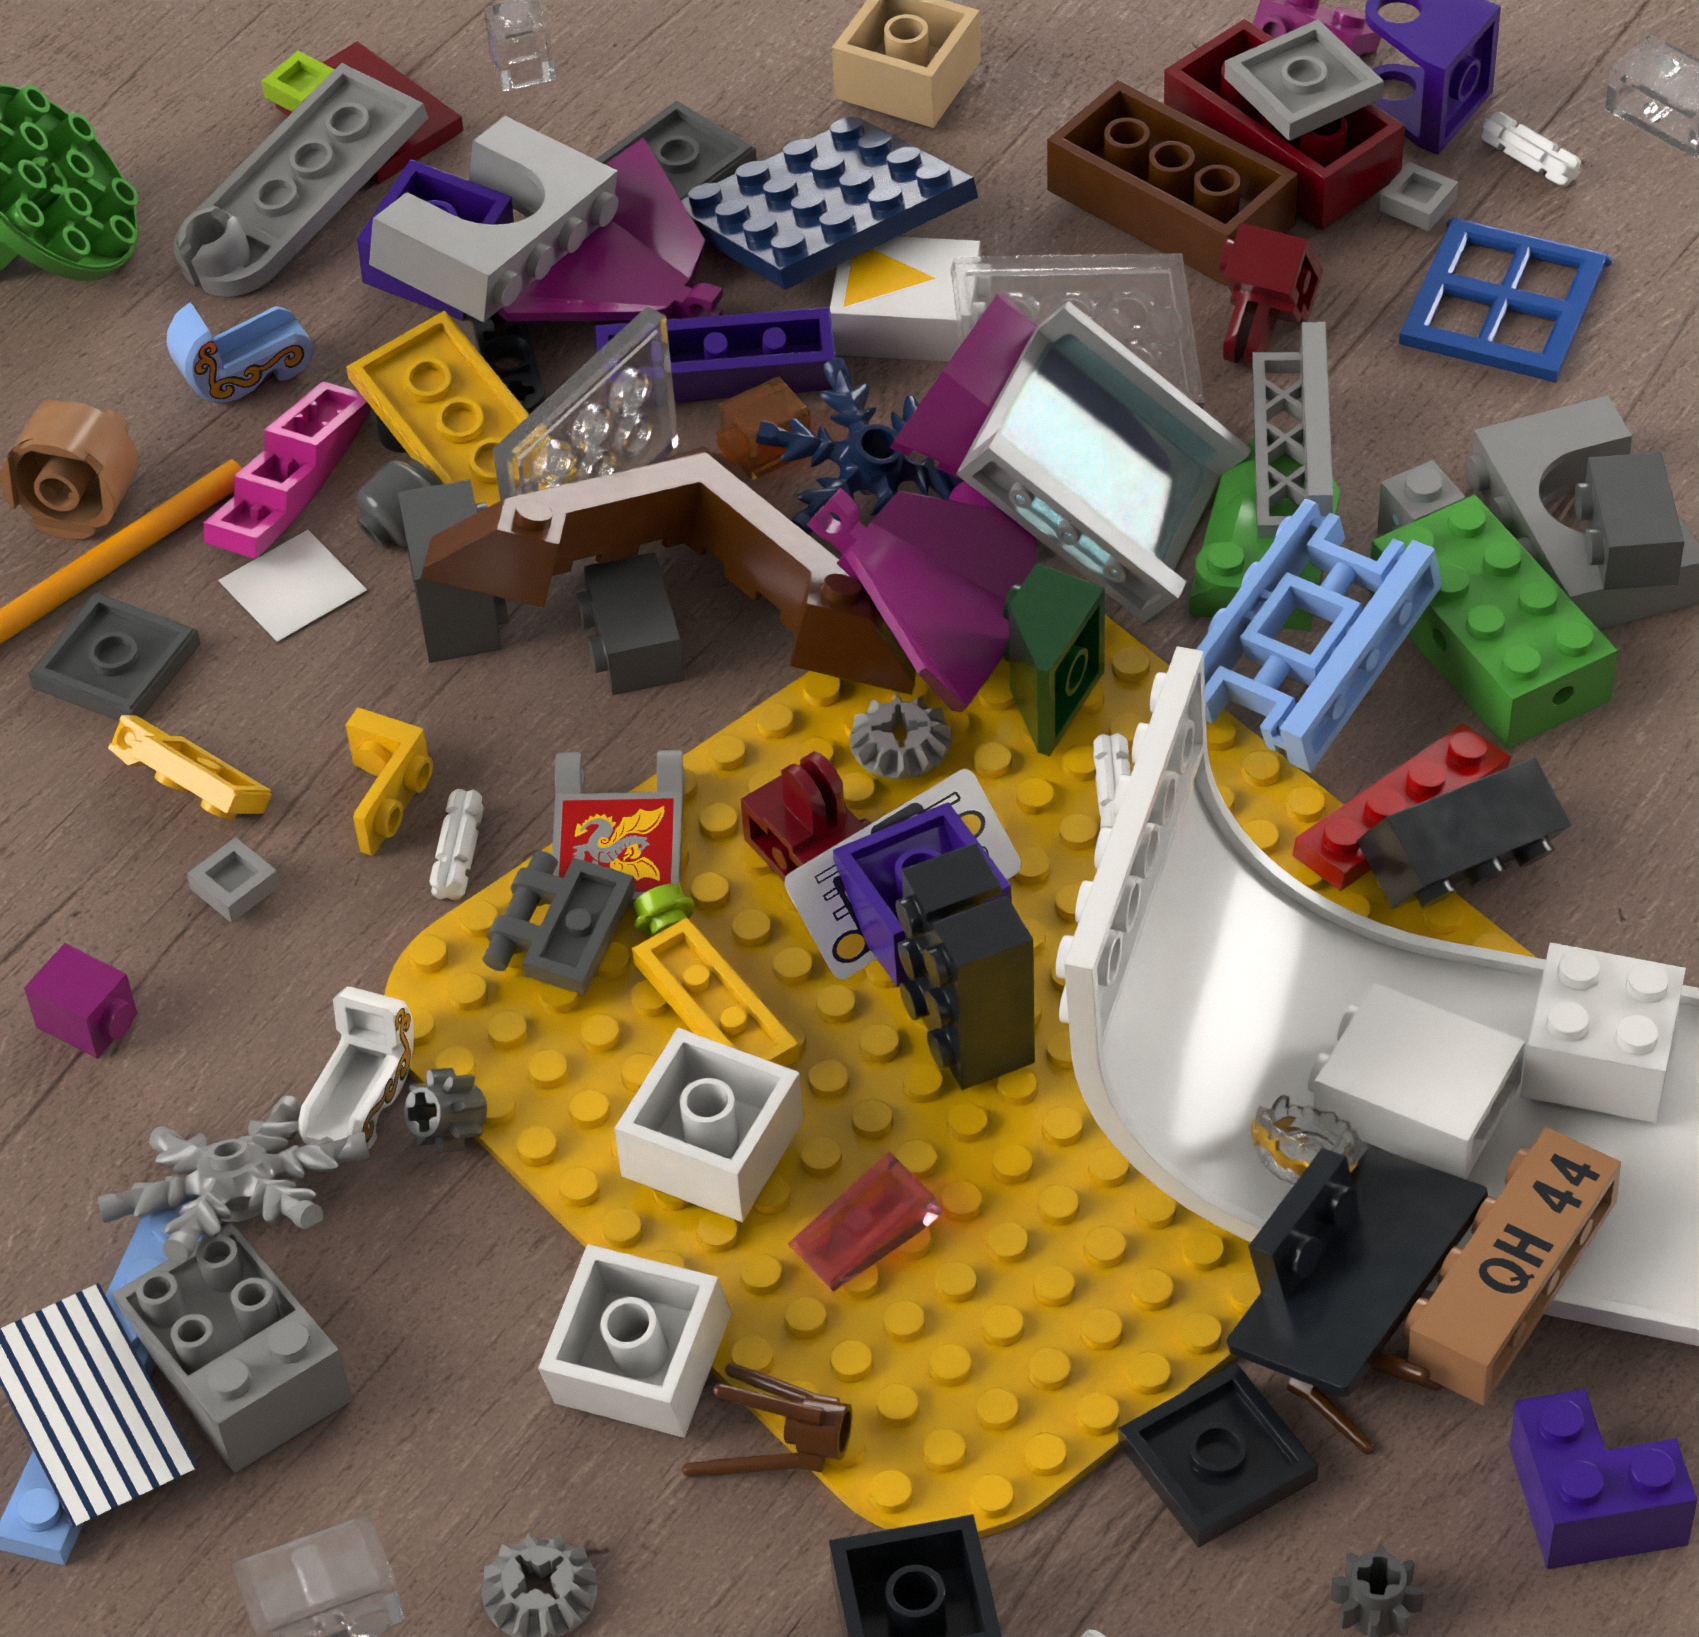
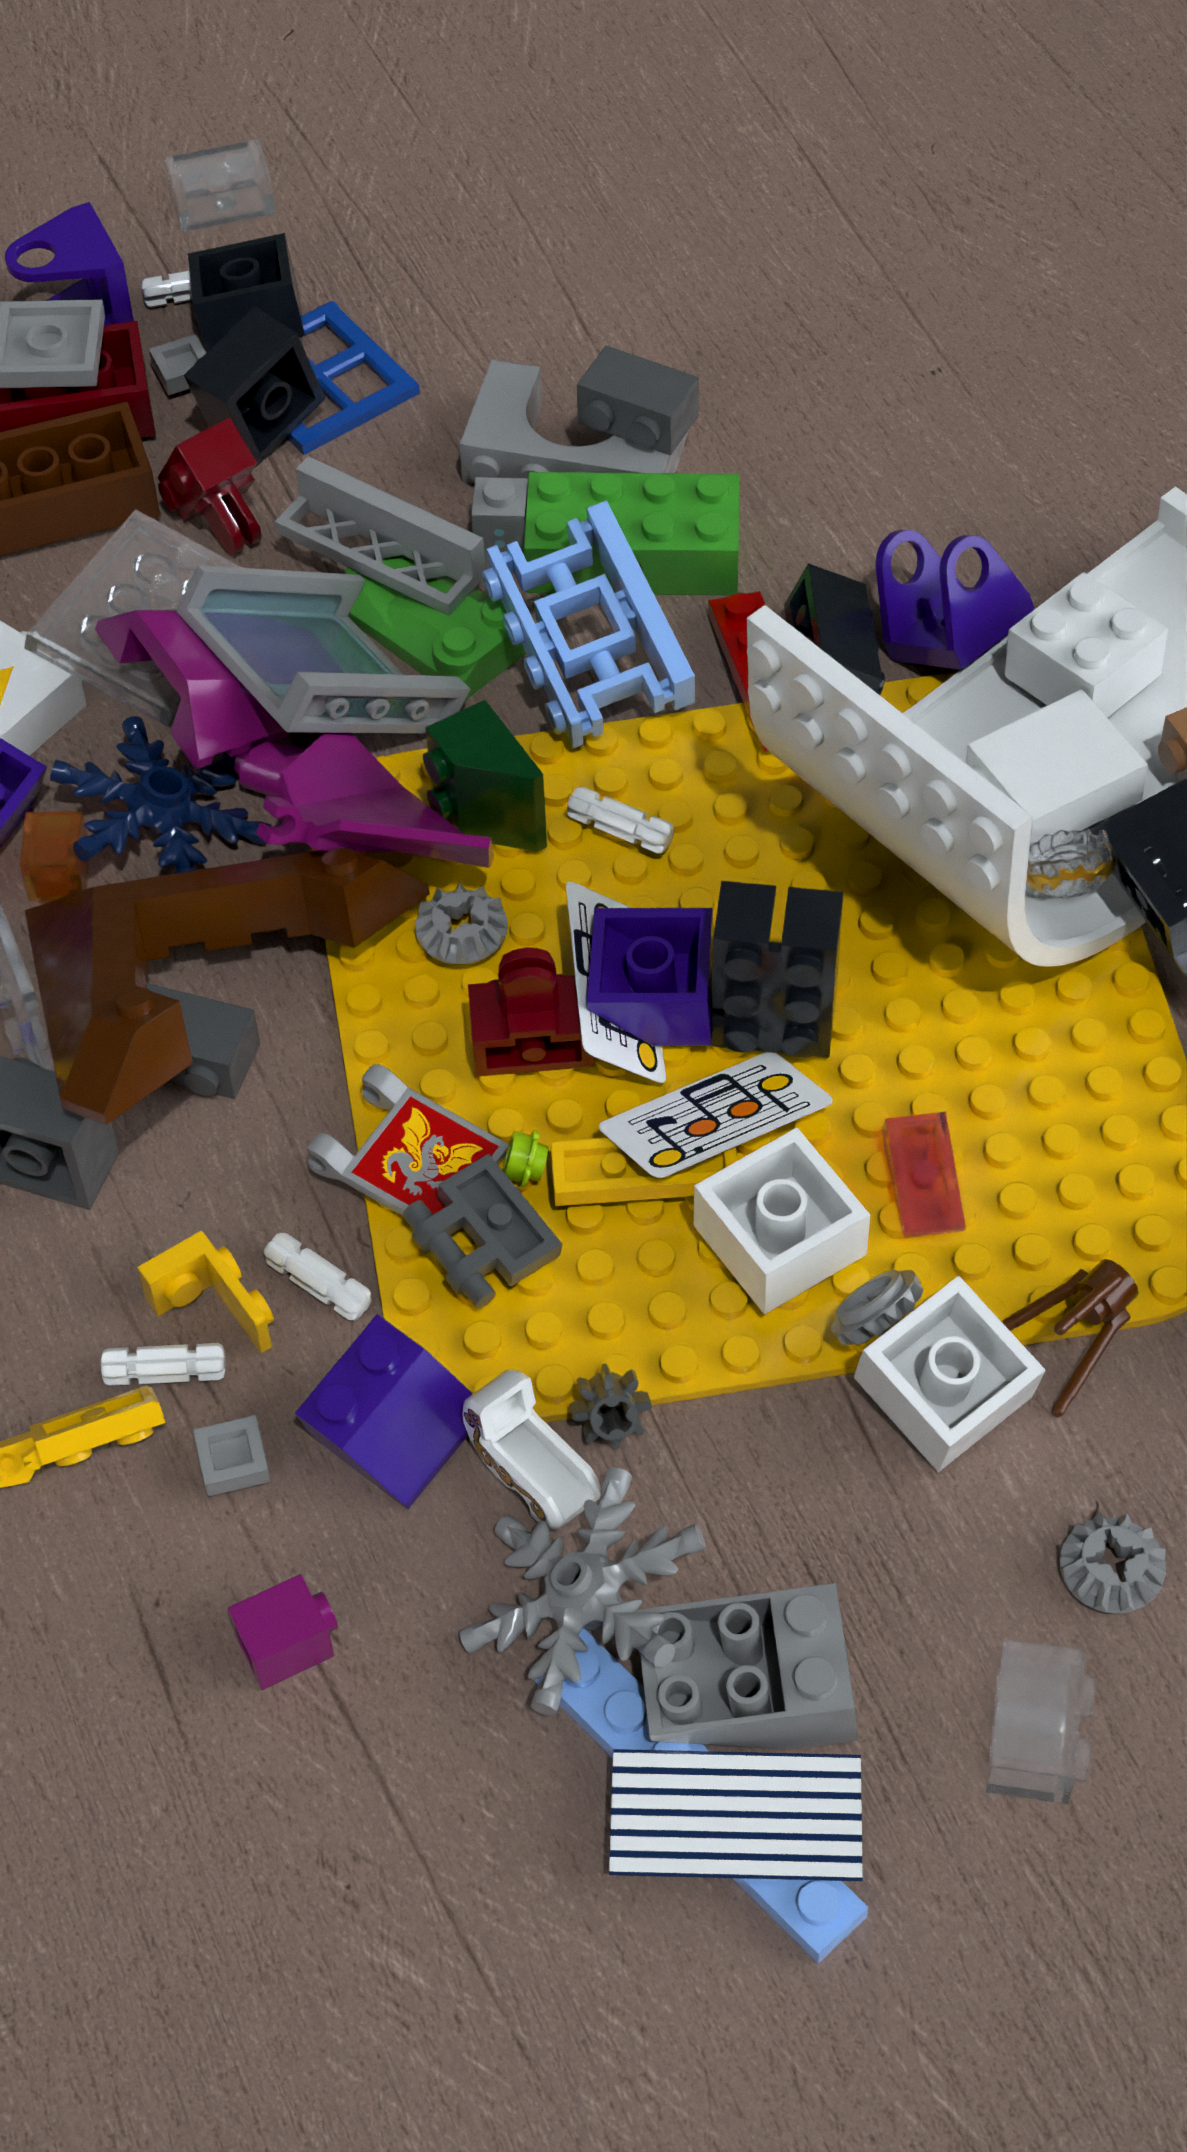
camera: 60 degrees left, 5 degrees up
(299, 789) = (163, 1364): none -> white axle
(328, 939) = (388, 1411): none -> dark purple slope
(669, 1245) = (876, 1306): none -> light grey gear
(810, 1024) = (714, 1114): none -> sticker
(1403, 249) = (258, 380): none -> black brick
(1528, 183) = (240, 276): none -> black brick
(1591, 897) = (934, 615): none -> dark purple hose

